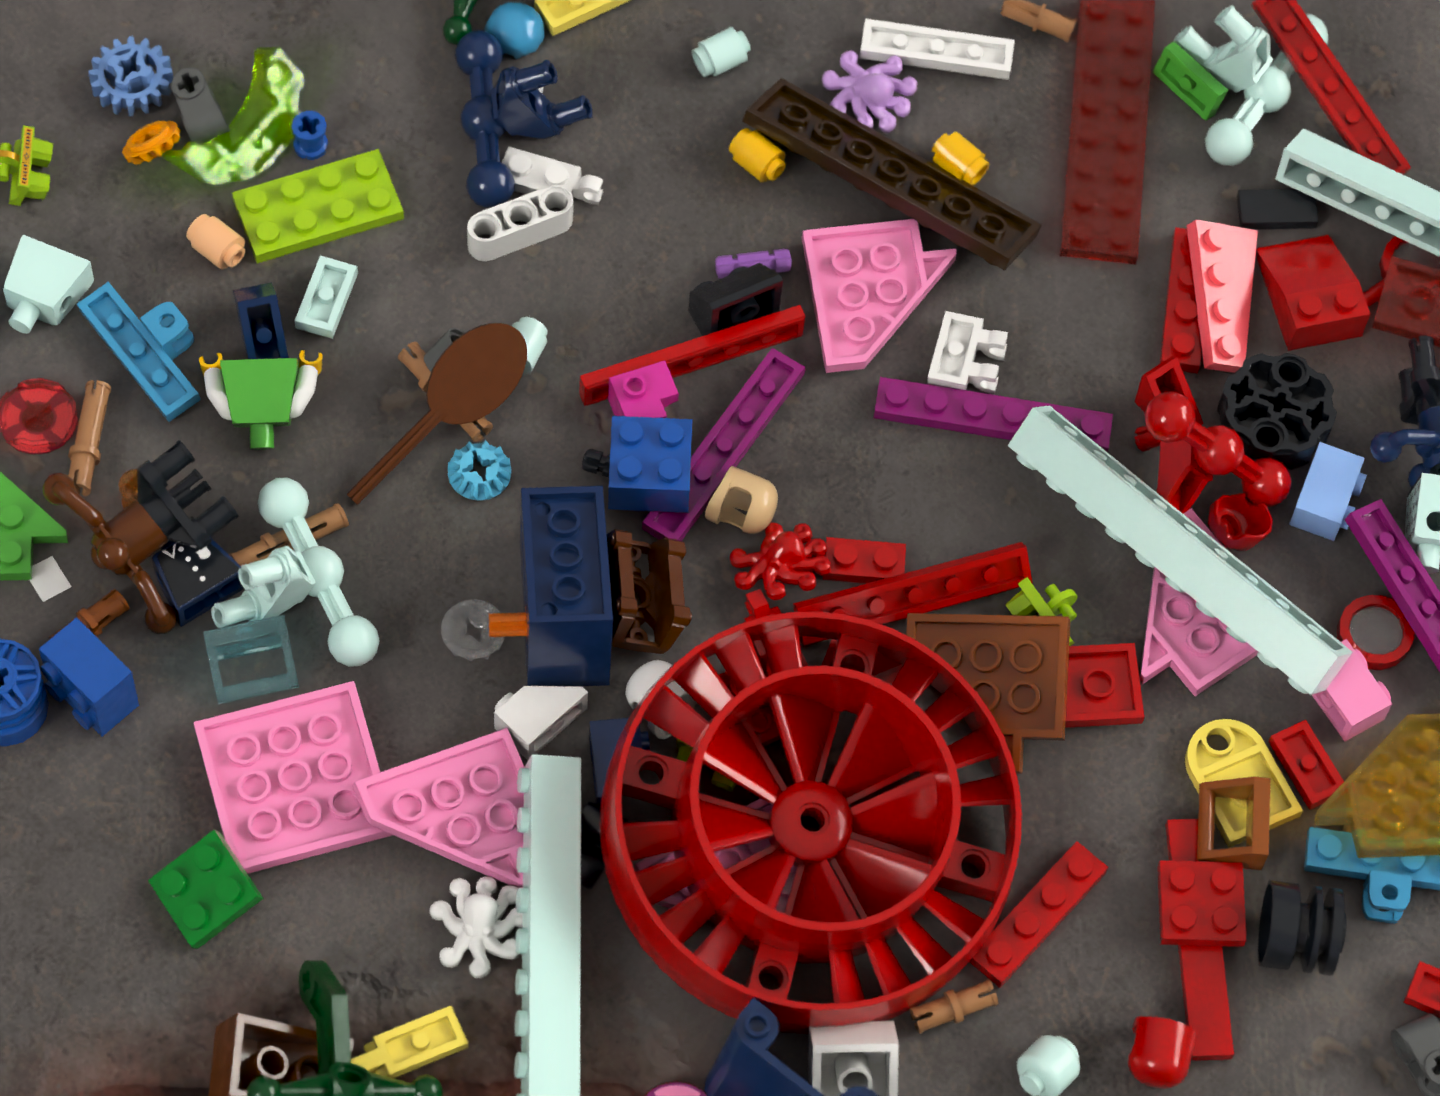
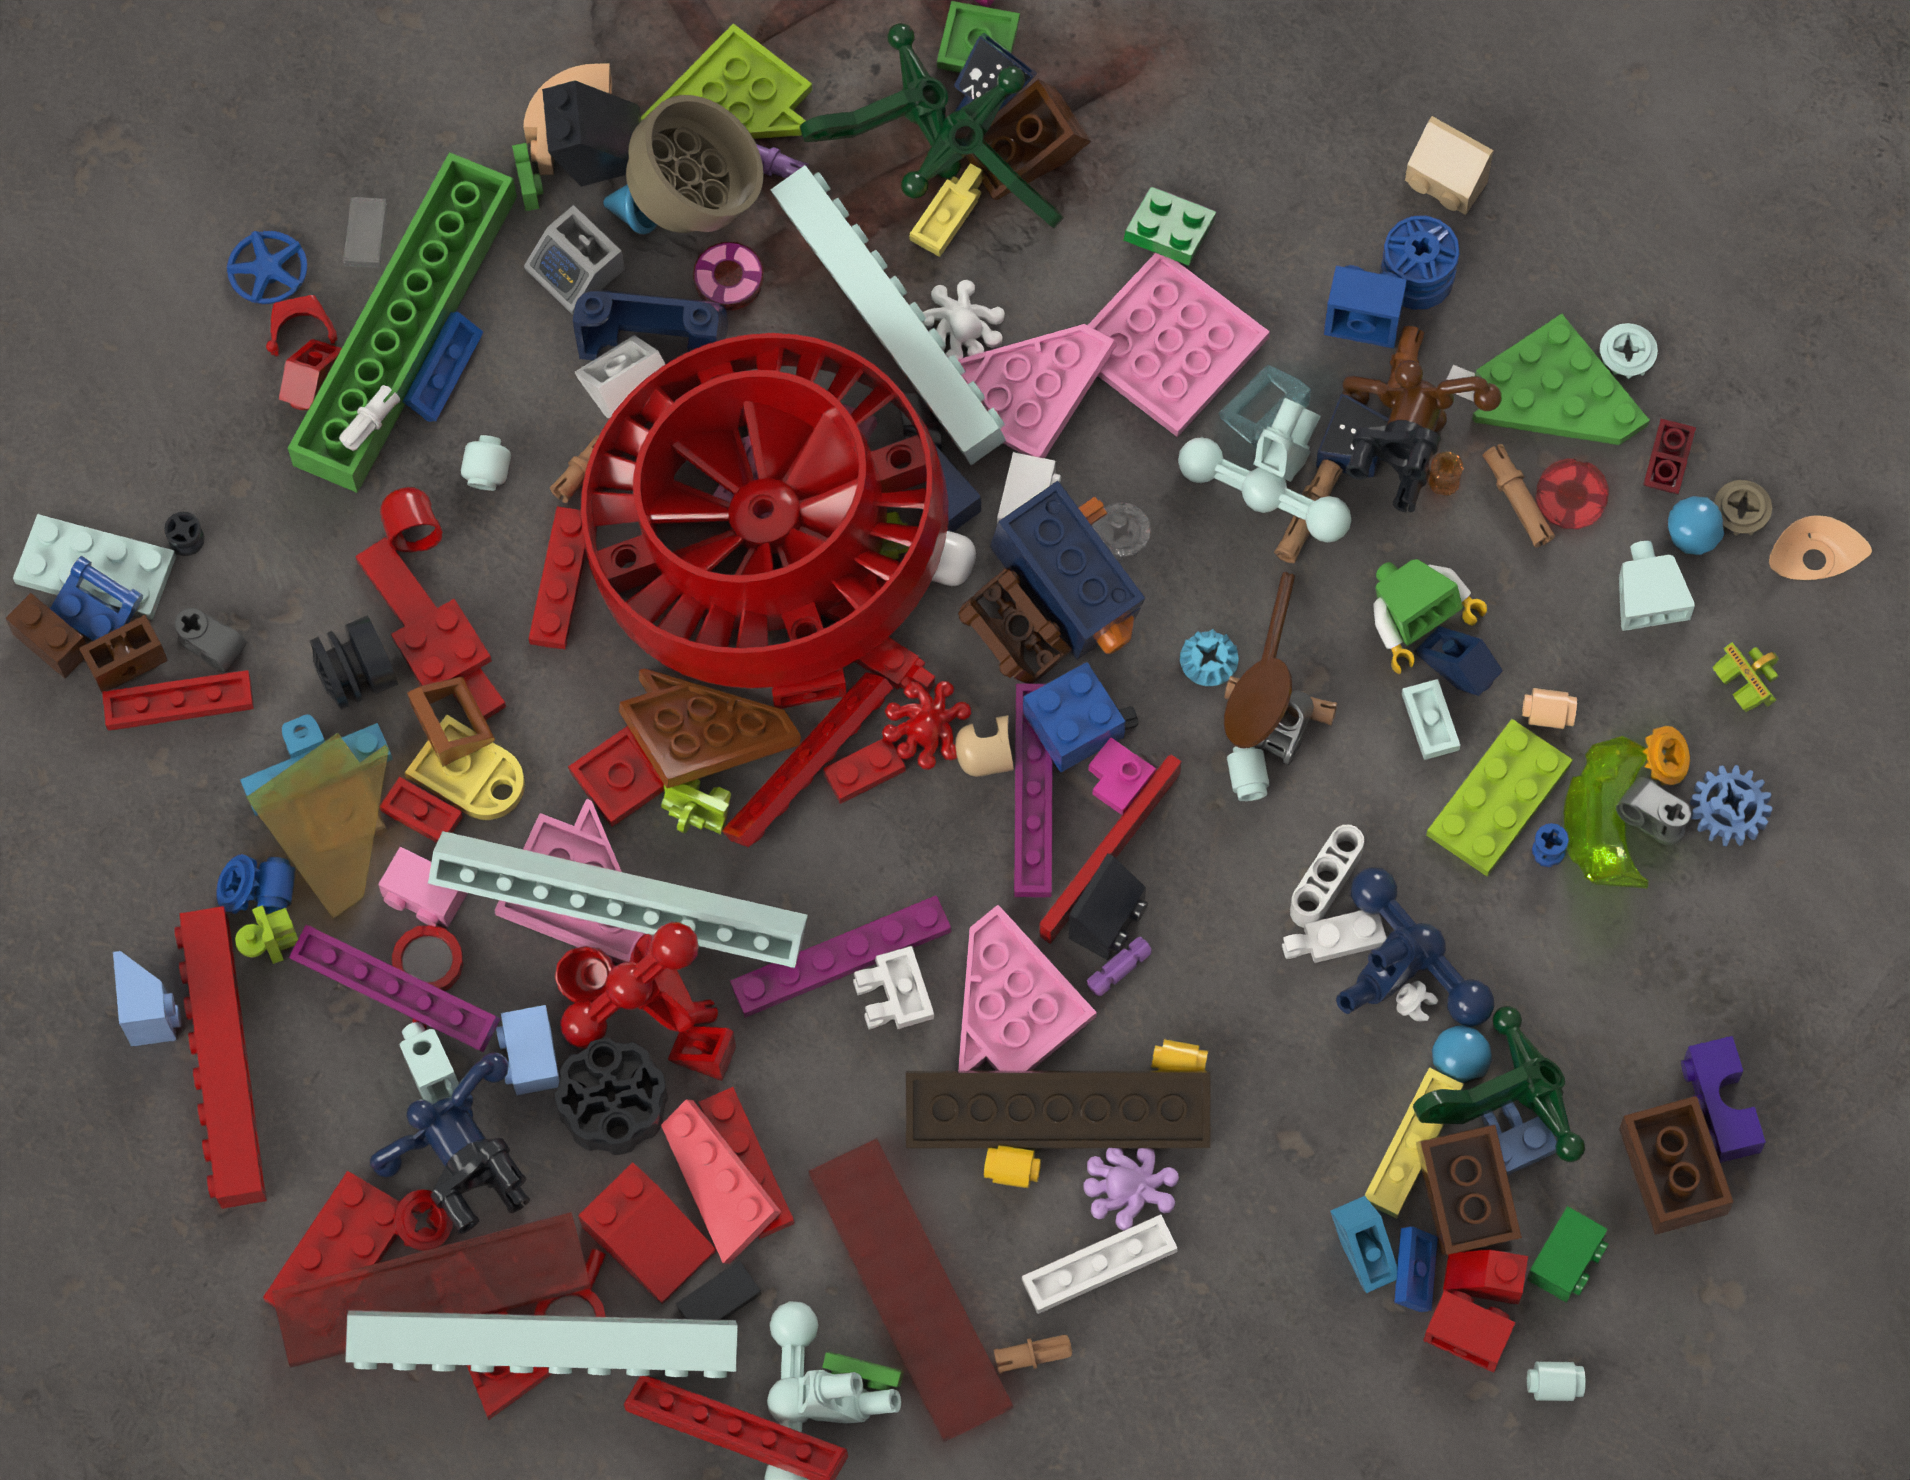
camera: 155 degrees right, 5 degrees up
(145, 346) = (1534, 589): dark azure plate -> none
(721, 52) = (1276, 1140): light aqua brick -> none

